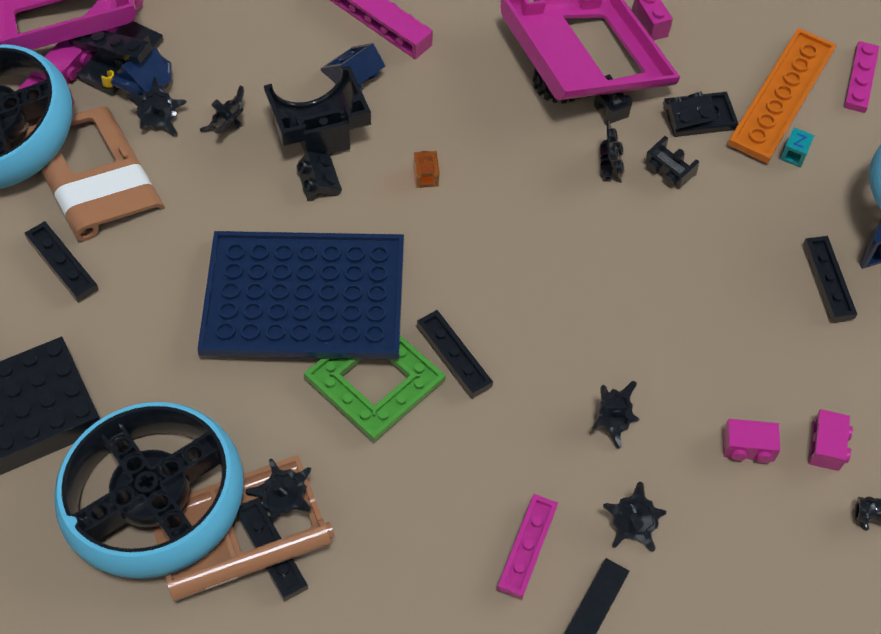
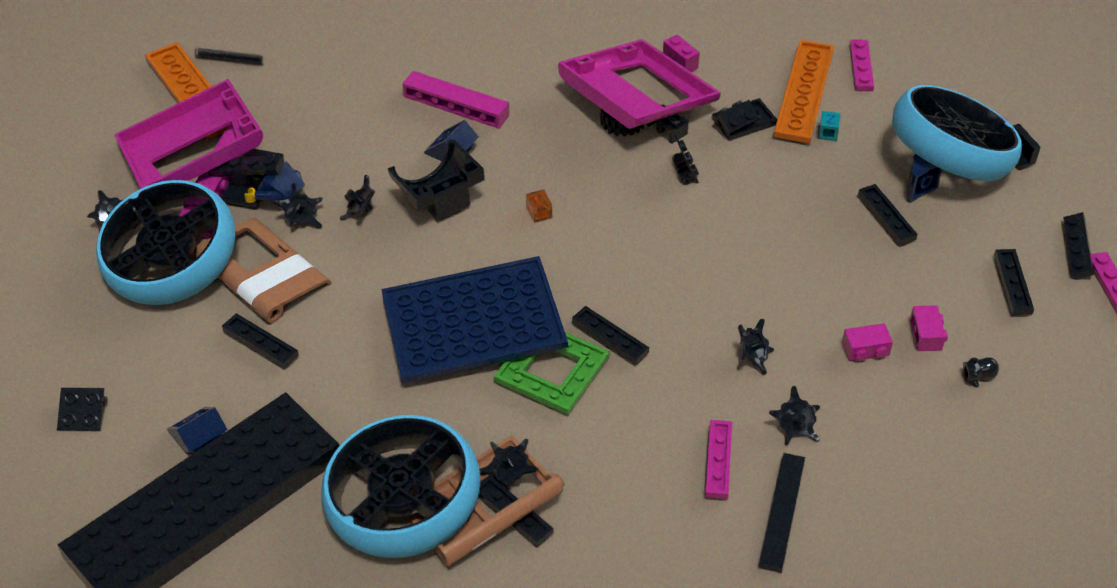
camera: 10 degrees left, 10 degrees down
(318, 175) = (451, 230): black bracket -> none
(670, 164) = (734, 160): black window -> none

